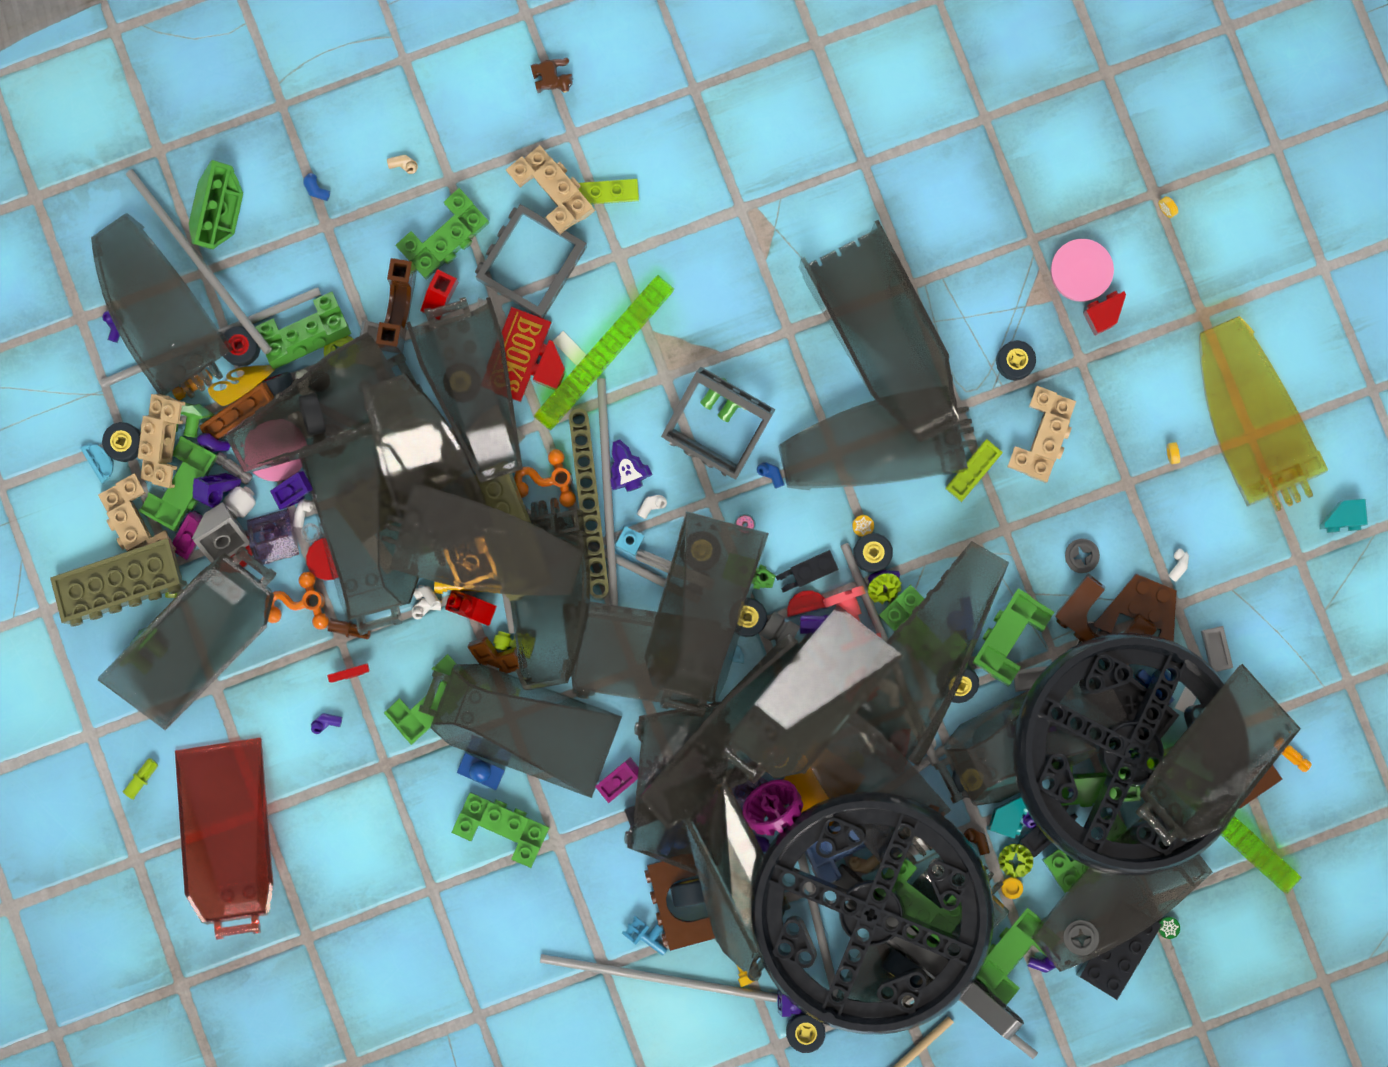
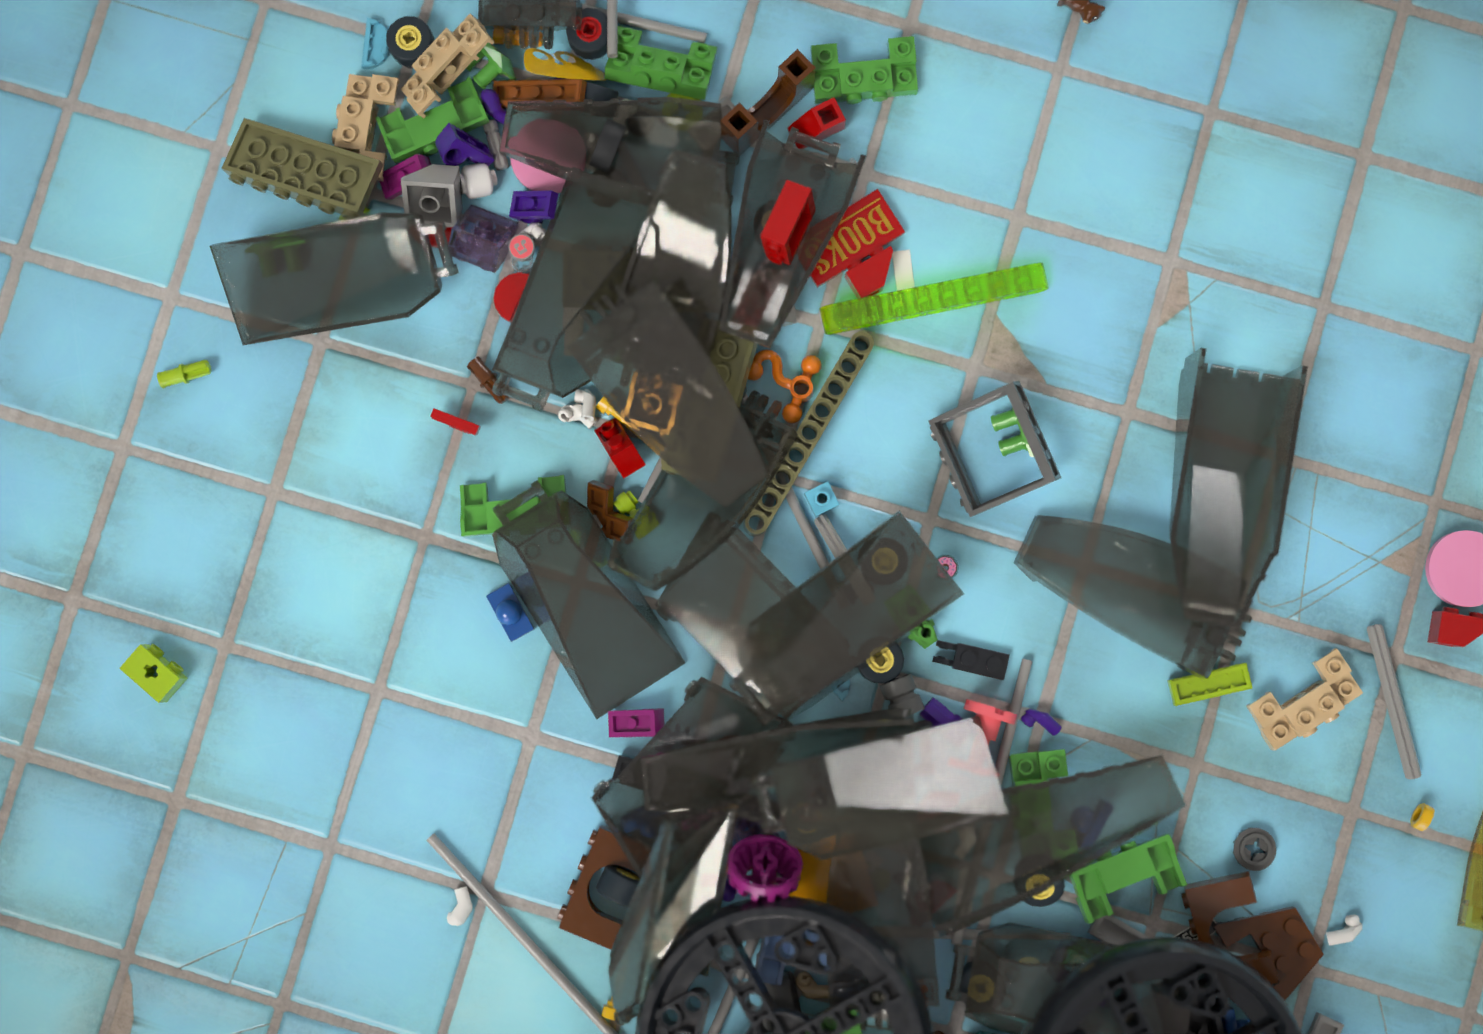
camera: 45 degrees right, 0 degrees up
(225, 834) = (218, 486): clear red windscreen -> none
(263, 995) = (140, 669): none -> lime brick
(304, 524) = (521, 247): none -> tile
(307, 581) = (483, 304): orange piece -> none
(324, 721) = (396, 450): dark purple arm -> none
(471, 377) = (788, 223): none -> red window
(504, 822) = (494, 678): bright green bracket -> none
(552, 178) = (1010, 102): tan bracket -> none
(561, 278) = (944, 197): dark grey window -> none
(598, 988) = (462, 909): none -> white arm
(607, 492) = (835, 436): light grey piece -> none
(610, 191) = (1051, 147): lime plate -> none
(627, 468) = (871, 428): dark purple rock -> none
(640, 933) = (543, 888): dark azure arm -> none
(651, 503) = (869, 478): white arm -> none
(771, 471) = (1009, 536): blue arm -> none
(805, 602) = (946, 687): red tile -> none
(862, 525) = (1059, 656): yellow tile -> none
(873, 552) = (1043, 695): black wheel -> none
(875, 588) = (1028, 726): lime gear -> none
(1019, 354) = (1343, 608): black wheel -> none
(1100, 391) = (1394, 701): none -> light grey axle

